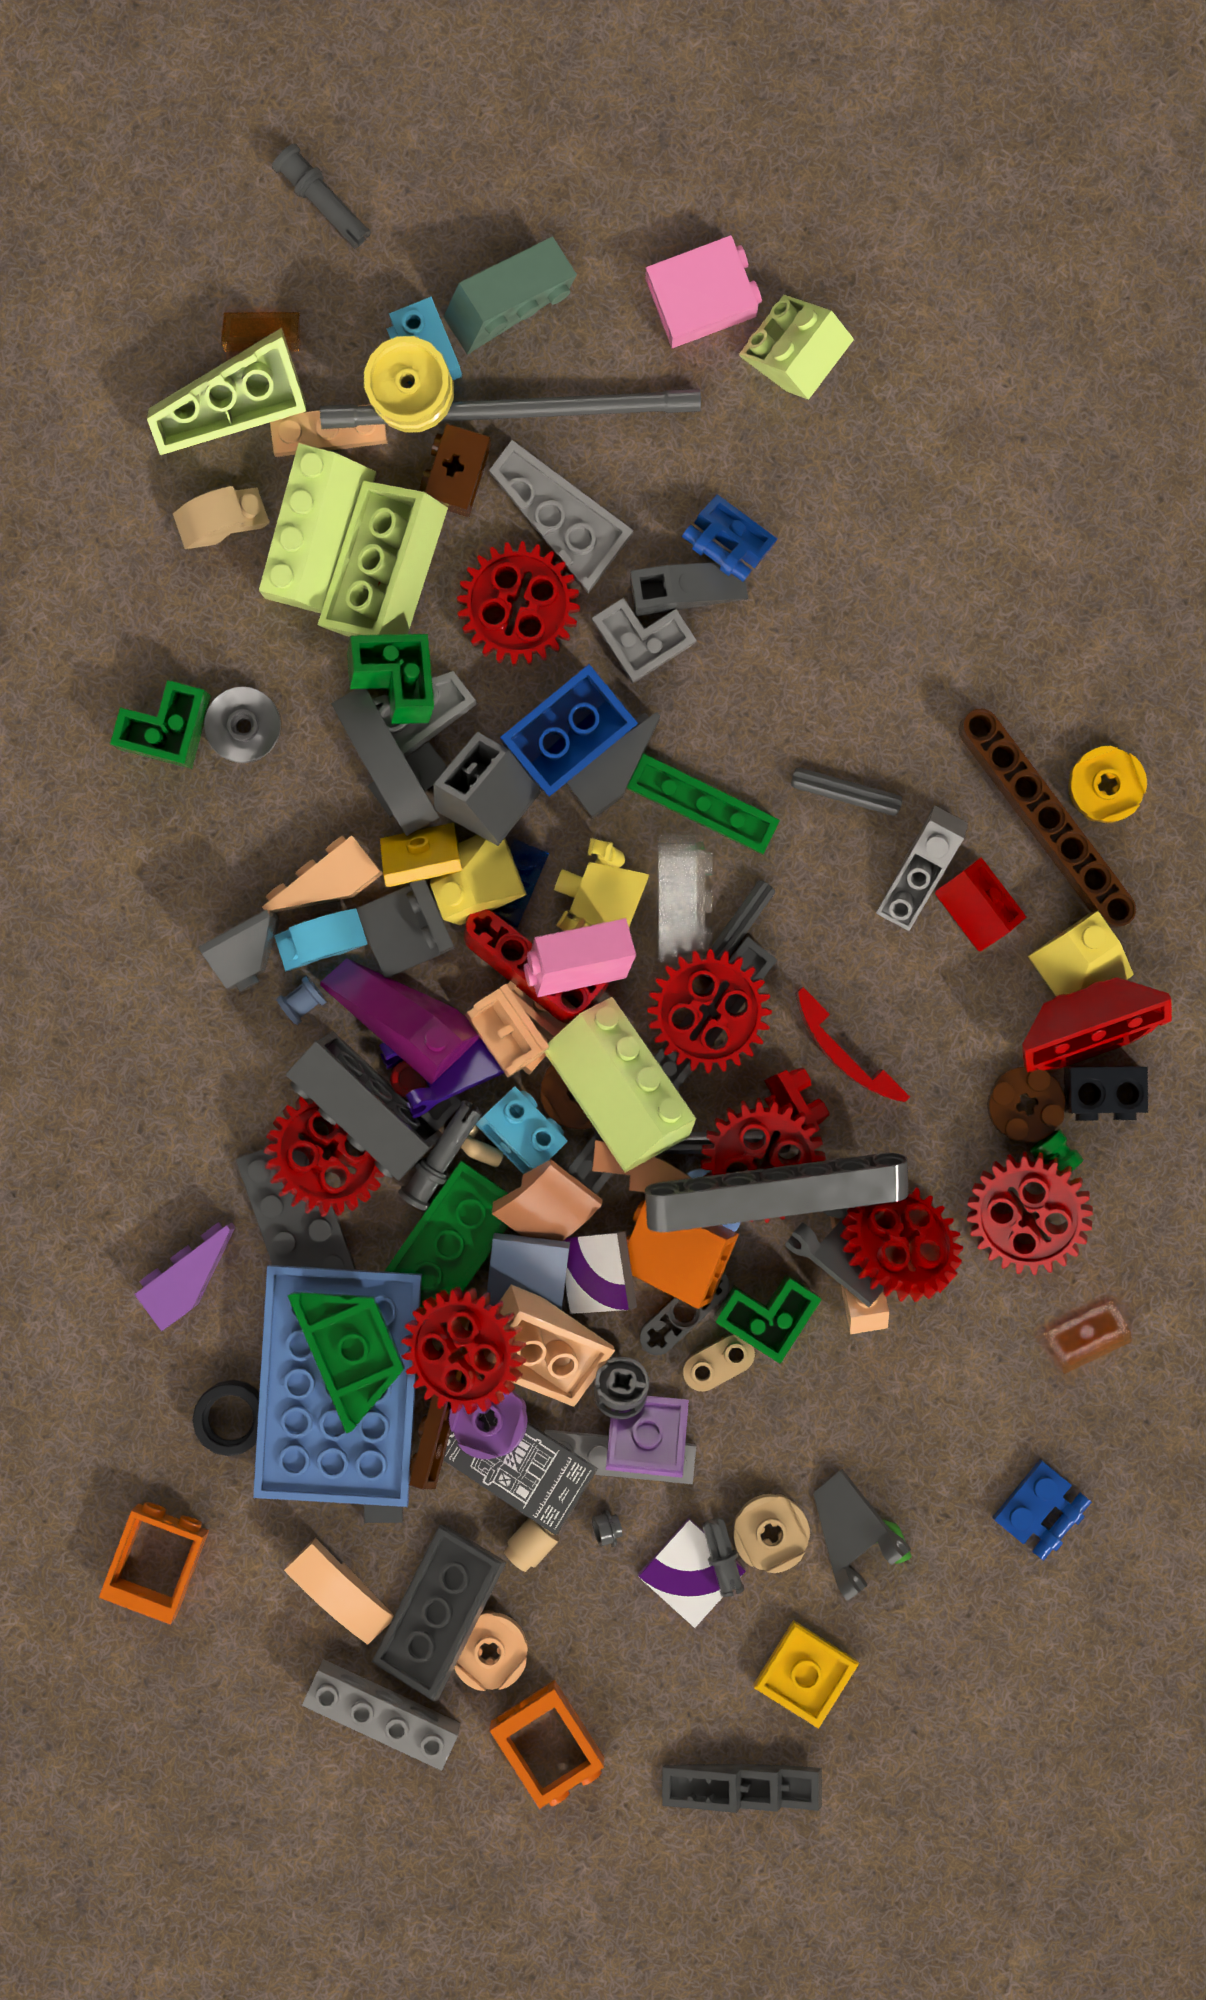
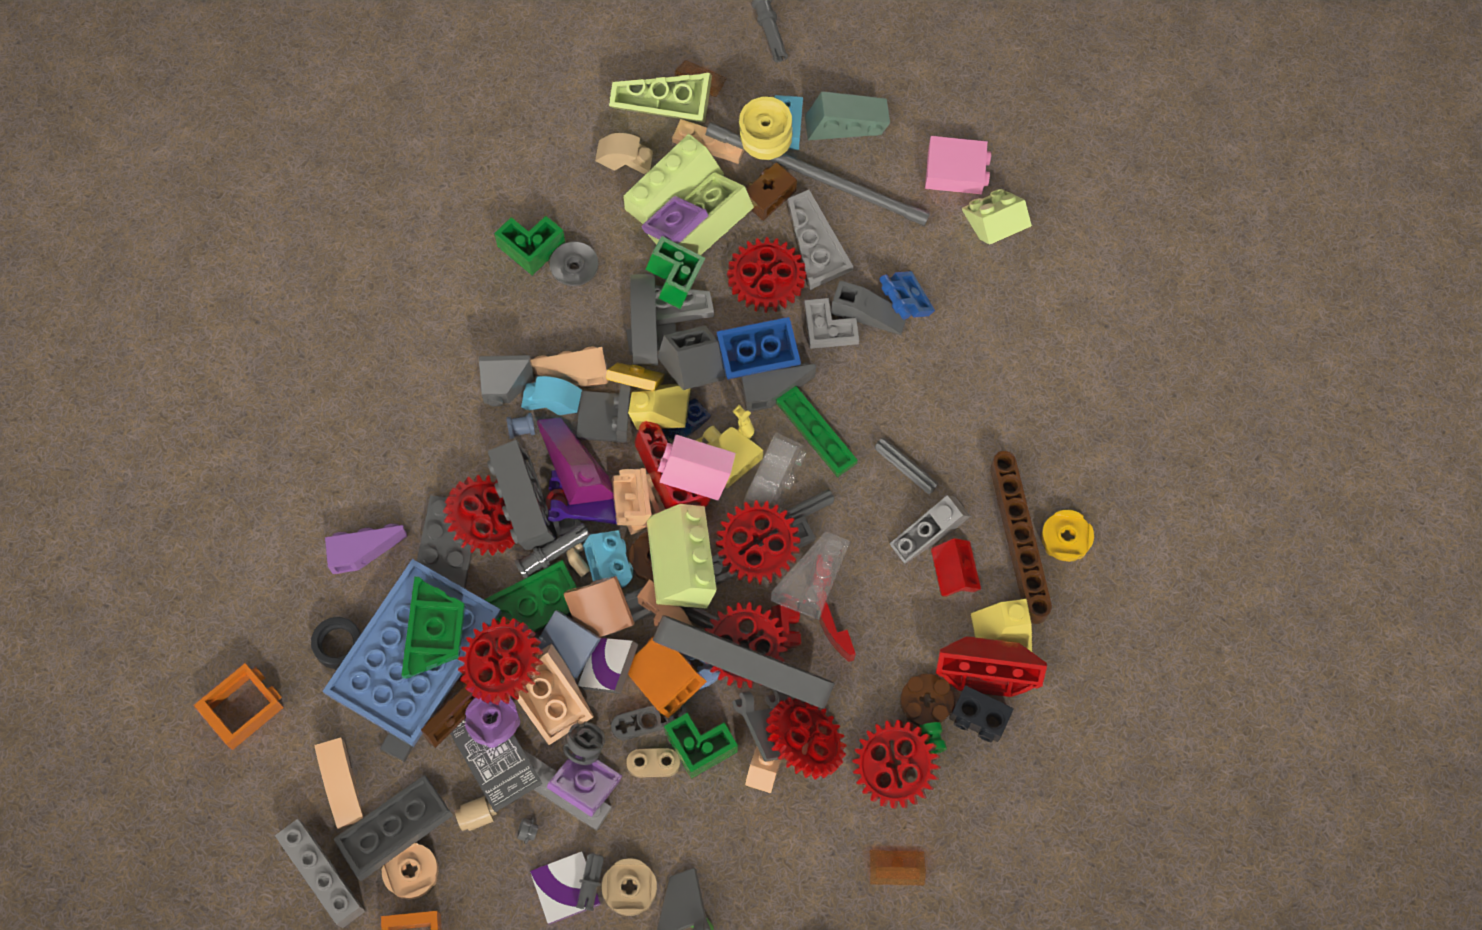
camera: 25 degrees right, 20 degrees down
(352, 593) = (675, 220): none -> medium lavender tile
(811, 1025) = (813, 577): none -> clear wedge

